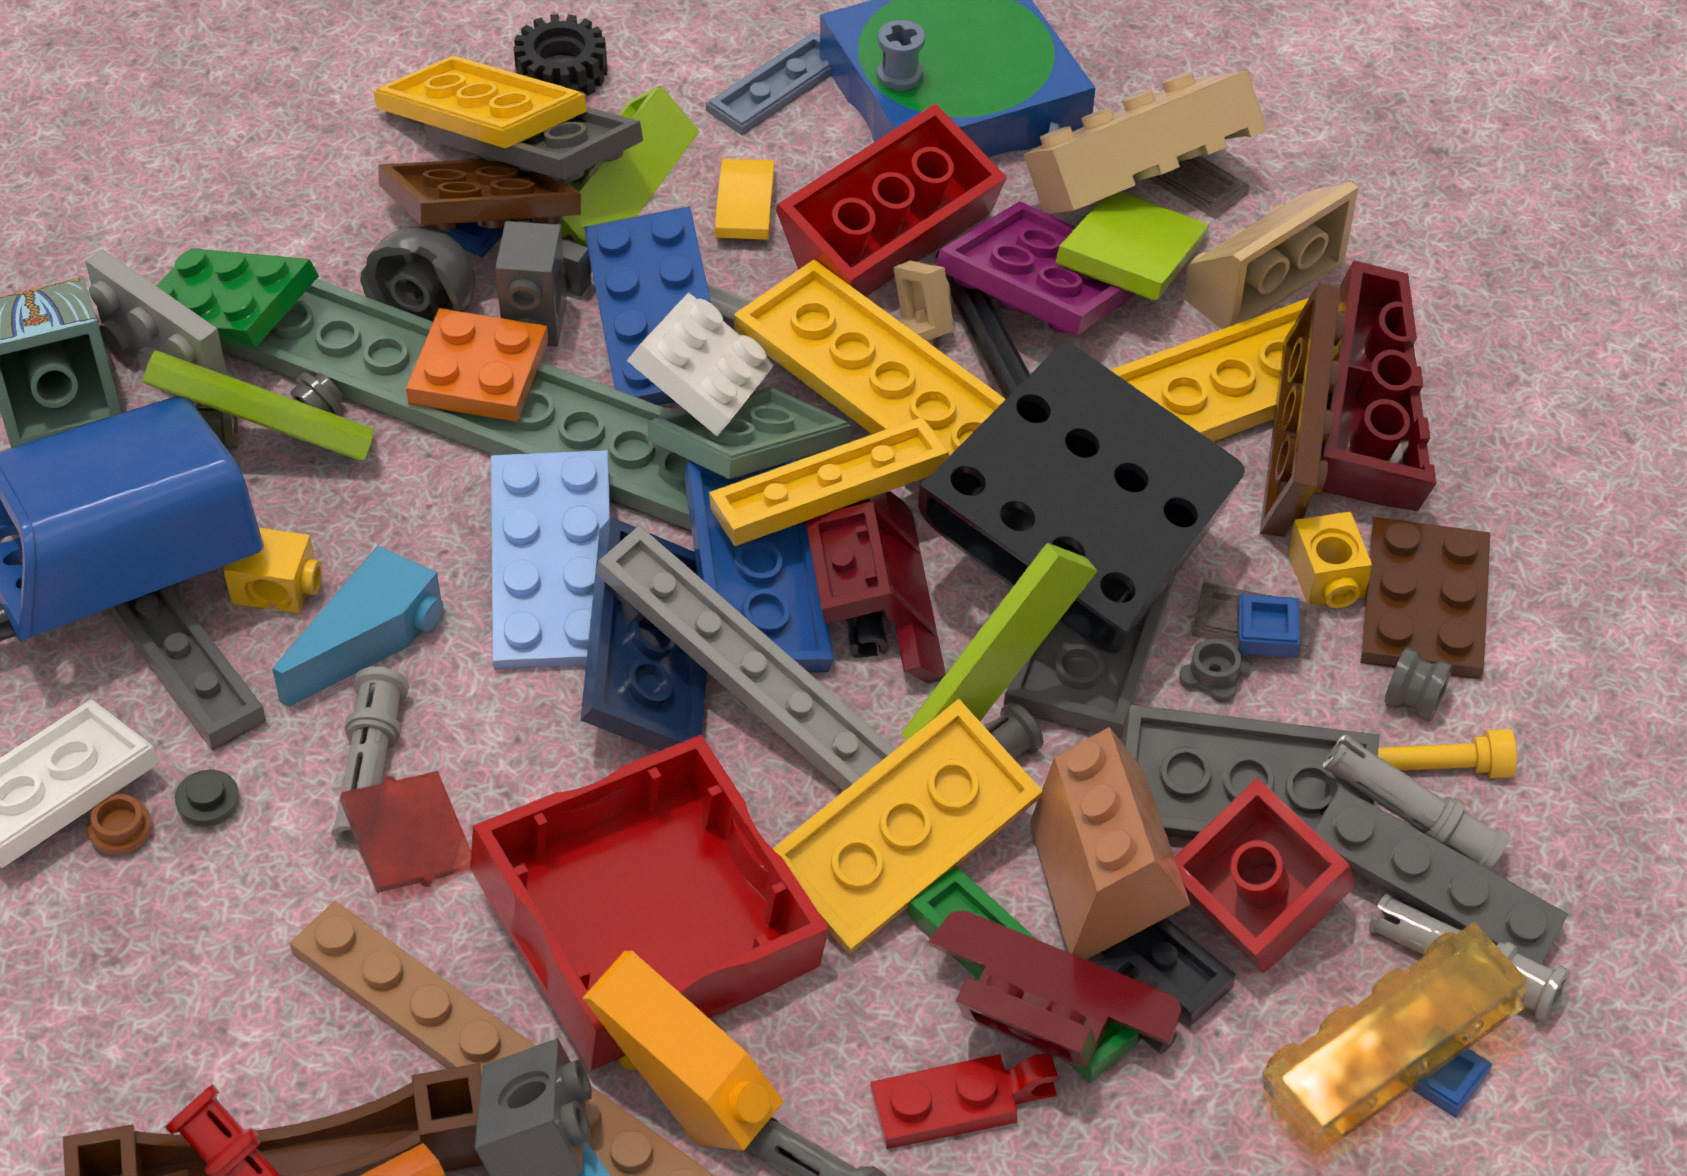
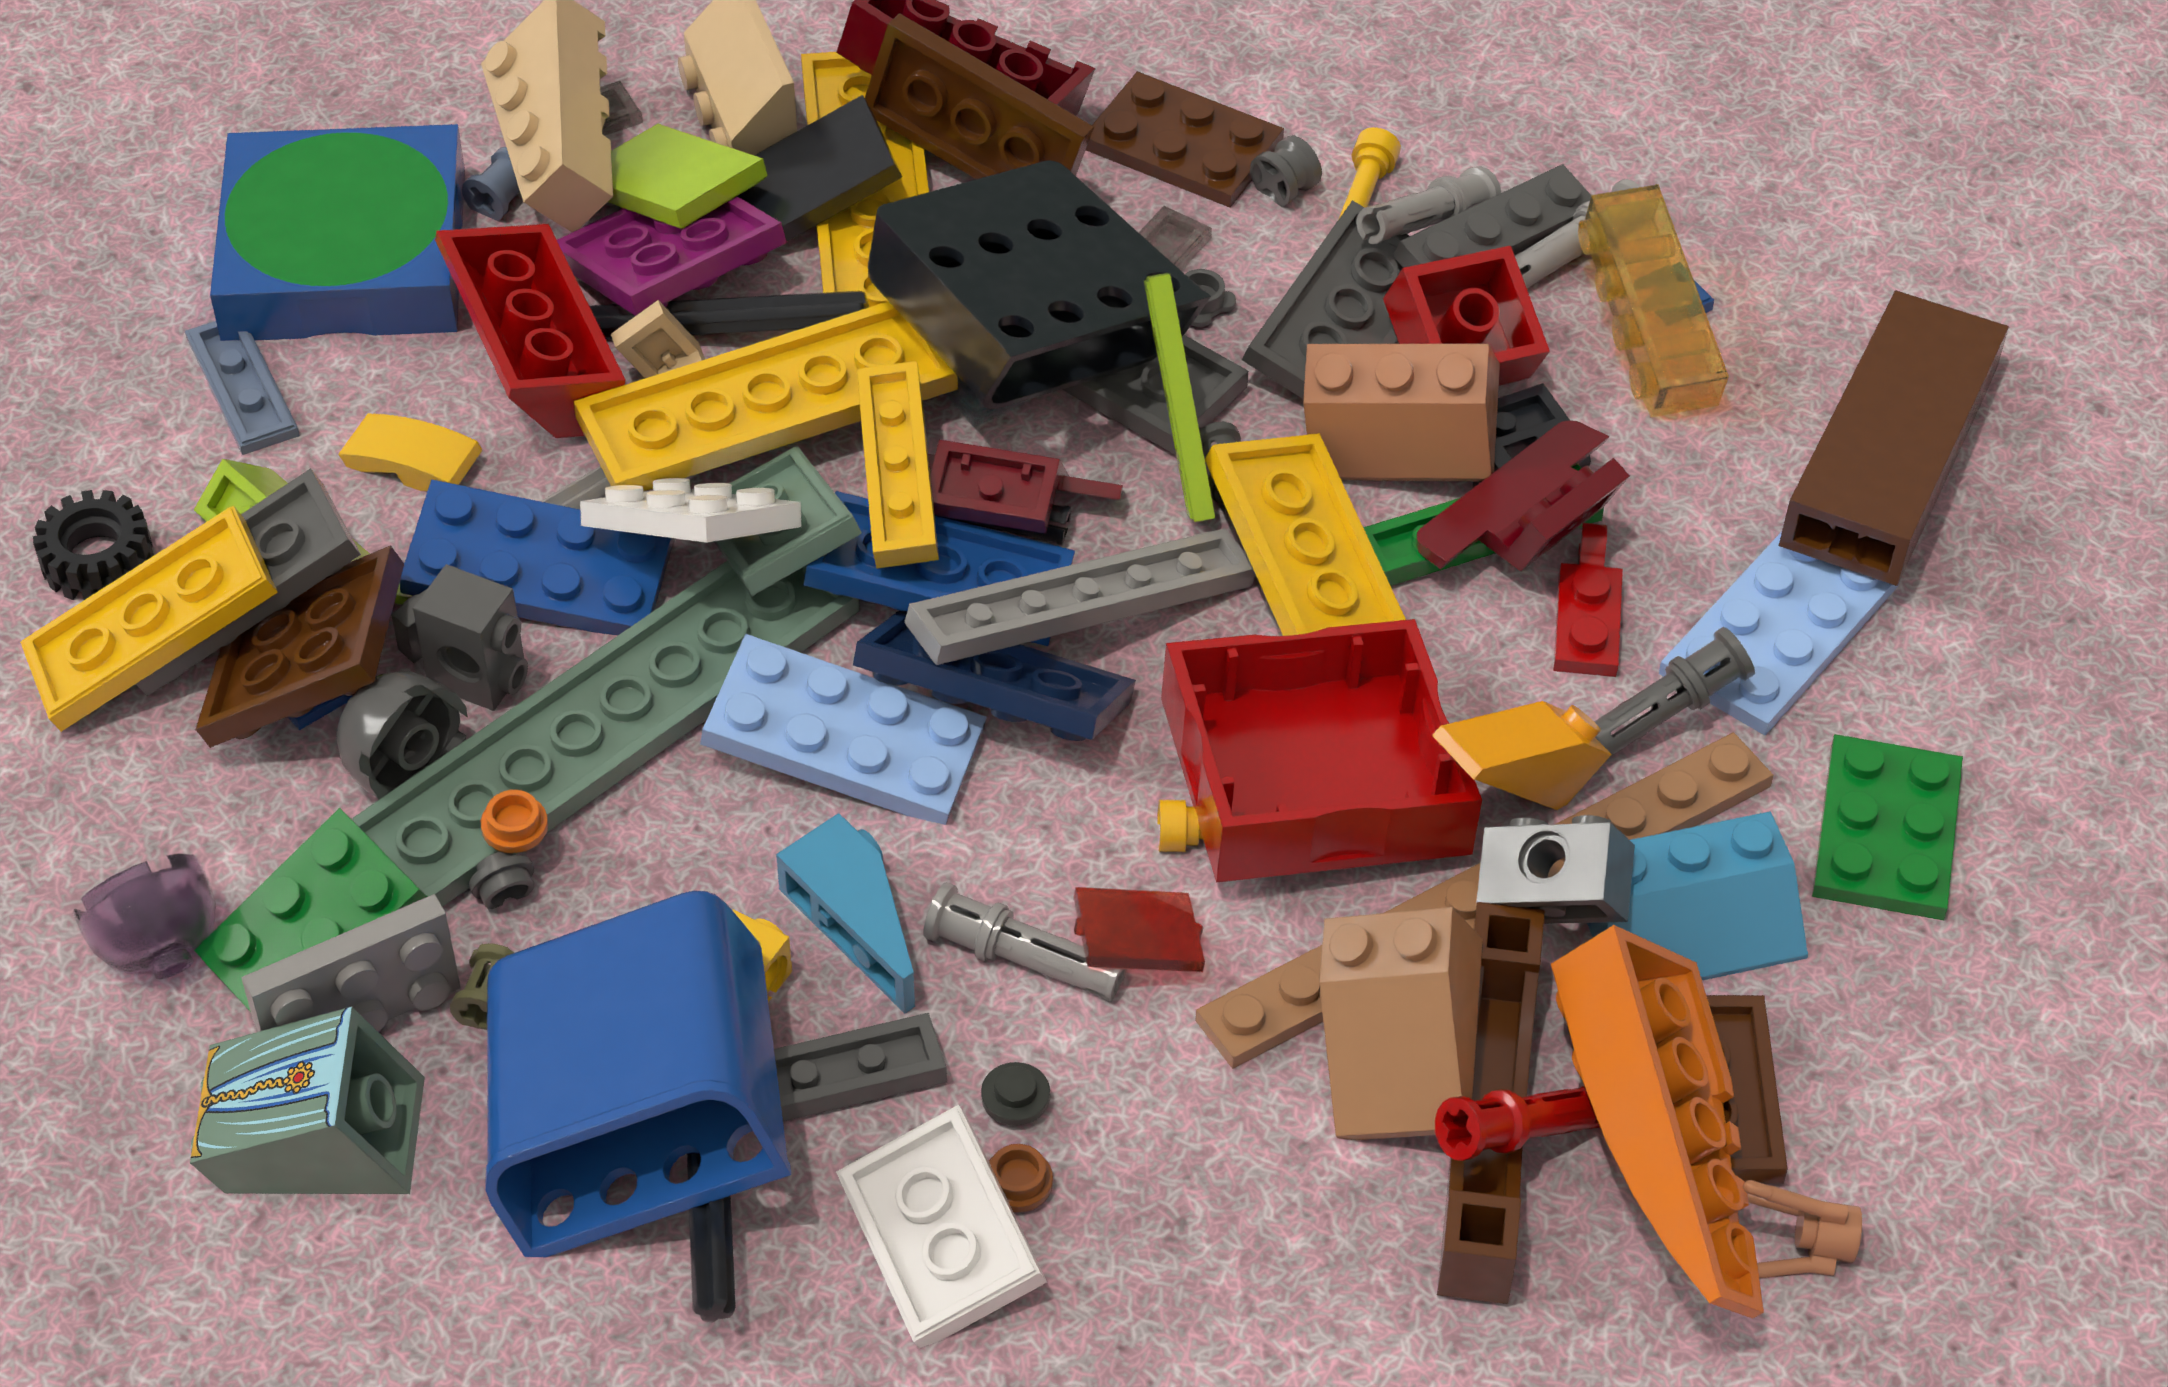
camera: 70 degrees left, 0 degrees up
(196, 208) = (149, 919): none -> clear purple cylinder
(258, 405) = (521, 913): lime tile -> none
(336, 1040) = (1398, 1018): none -> medium nougat slope
(356, 374) = (514, 822): none -> orange plate
(477, 364) = (550, 718): orange plate -> none
(900, 55) = (328, 227): sand blue bush -> none
(1185, 333) = (824, 169): none -> black tile
(1268, 625) = (1184, 238): blue tile -> none
(1330, 559) = (1128, 175): yellow brick -> none

